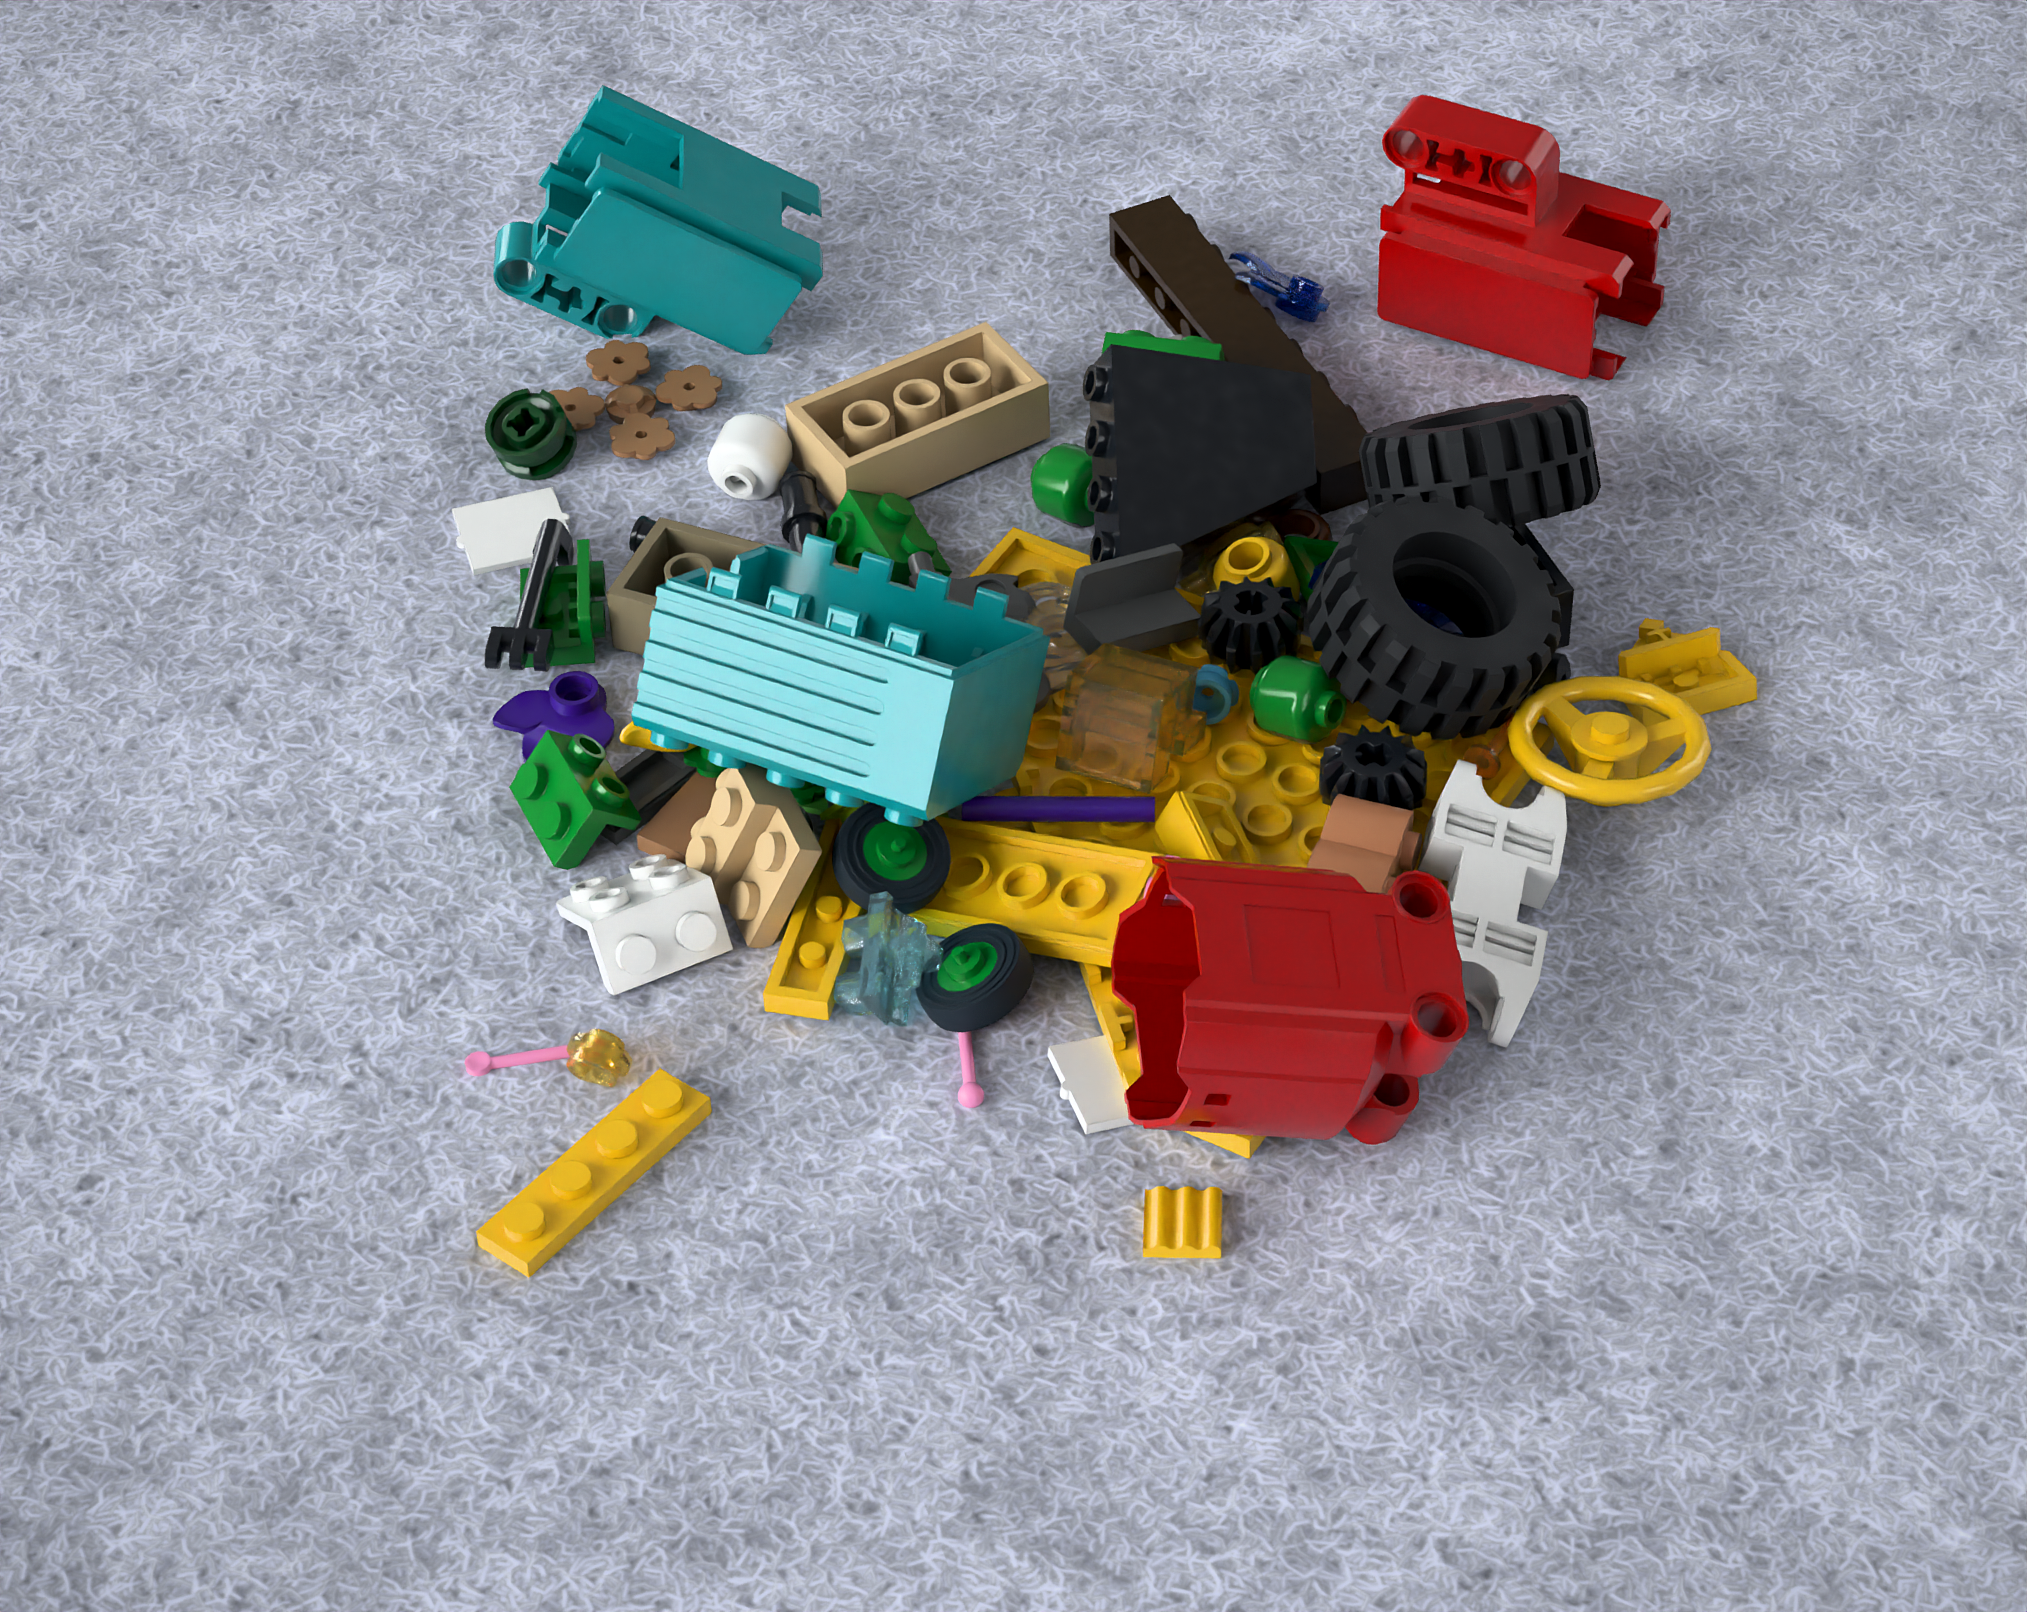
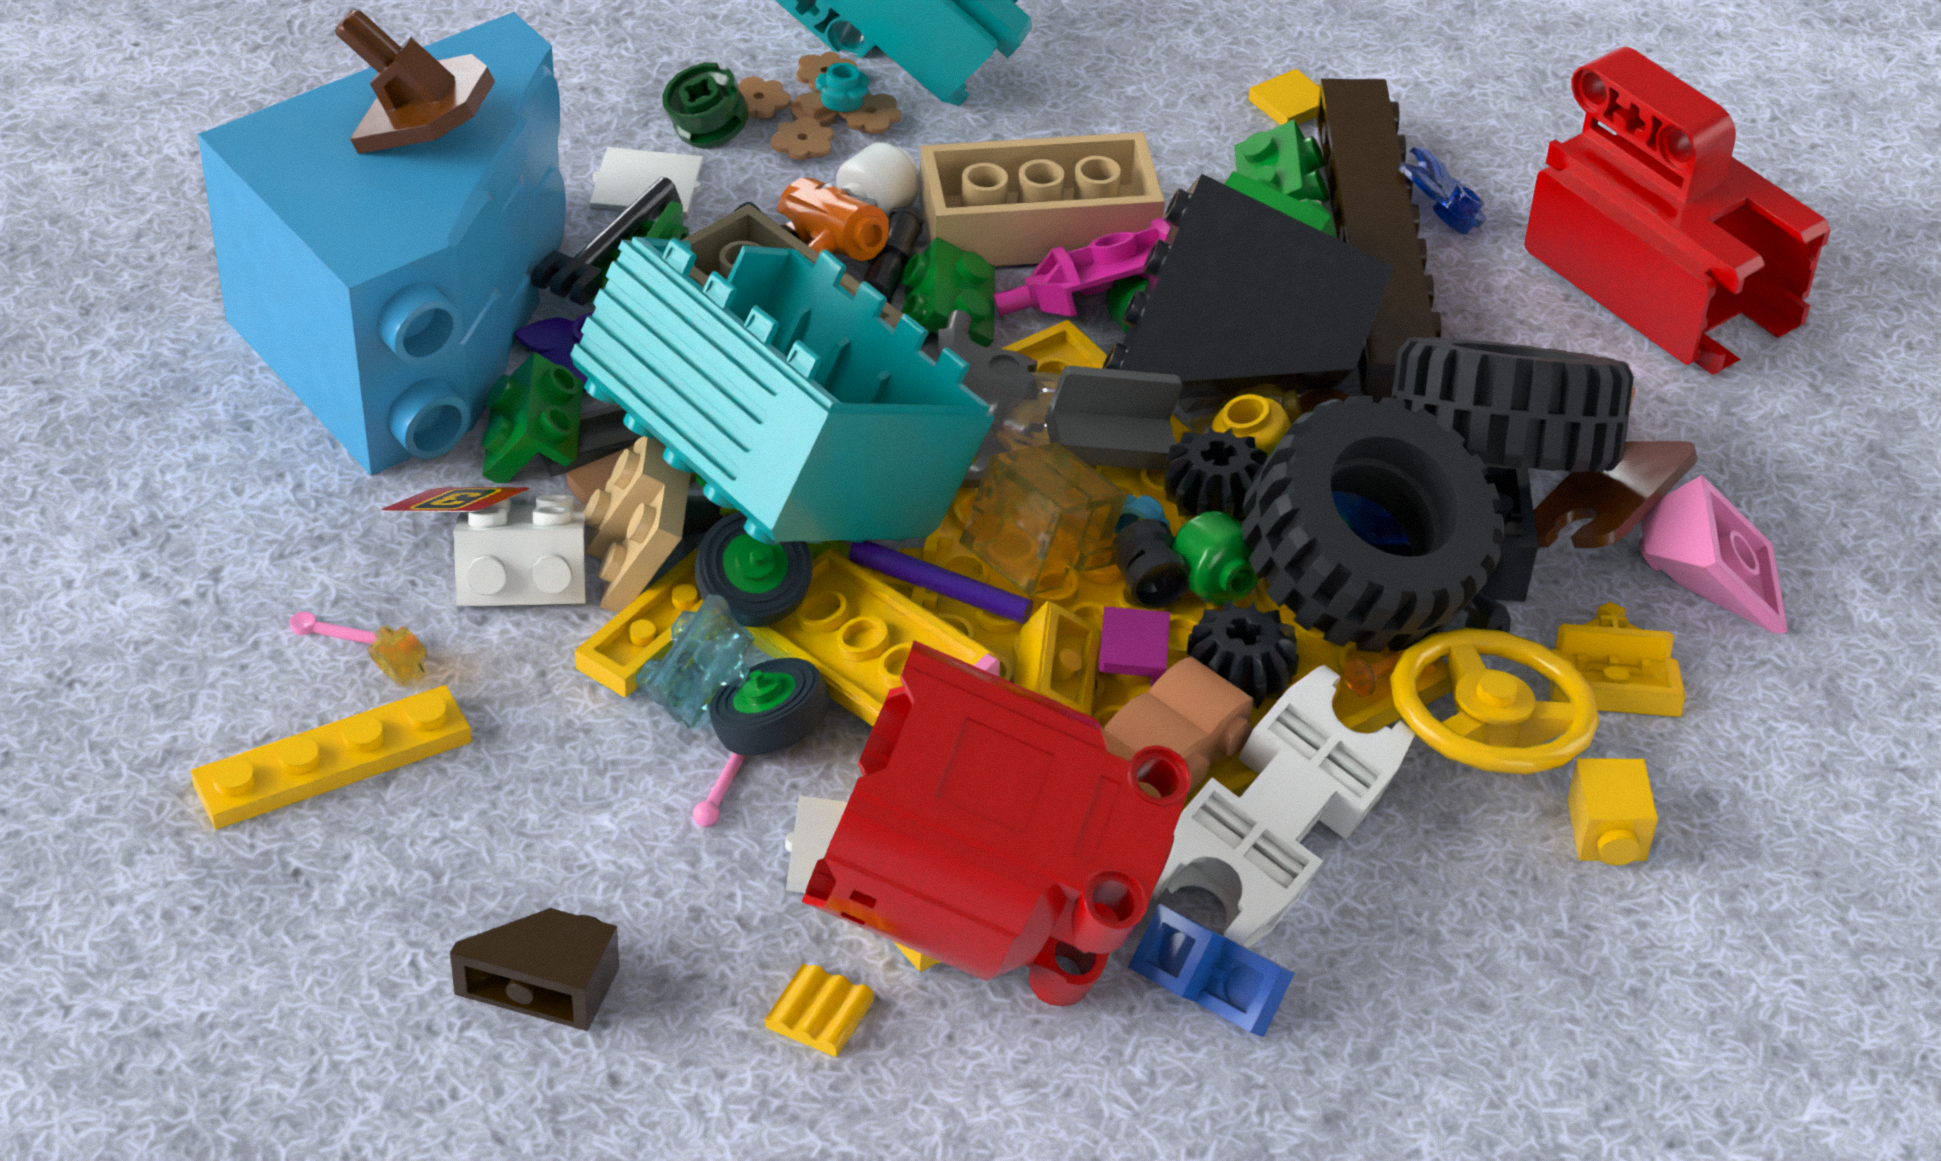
camera: 20 degrees right, 0 degrees up
(344, 670) = (393, 271): none -> dark azure slope
(357, 513) = (414, 91): none -> reddish brown piece
(556, 895) = (456, 499): none -> sticker
(654, 372) = (842, 87): none -> teal plate
(738, 504) = (834, 219): none -> orange piece
(923, 1278) = (540, 966): none -> dark brown slope
(1013, 469) = (1083, 269): none -> dark pink plate
(1075, 243) = (1287, 97): none -> yellow piece
(1114, 306) = (1285, 160): none -> green bracket
(1237, 721) = (1150, 564): none -> black wheel
(1280, 802) = (1134, 642): none -> magenta panel
(1510, 1063) = (1211, 970): none -> blue slope
(1607, 524) = (1615, 497): none -> reddish brown piece
(1708, 543) = (1714, 553): none -> bright pink slope
(1753, 800) = (1612, 810): none -> yellow brick

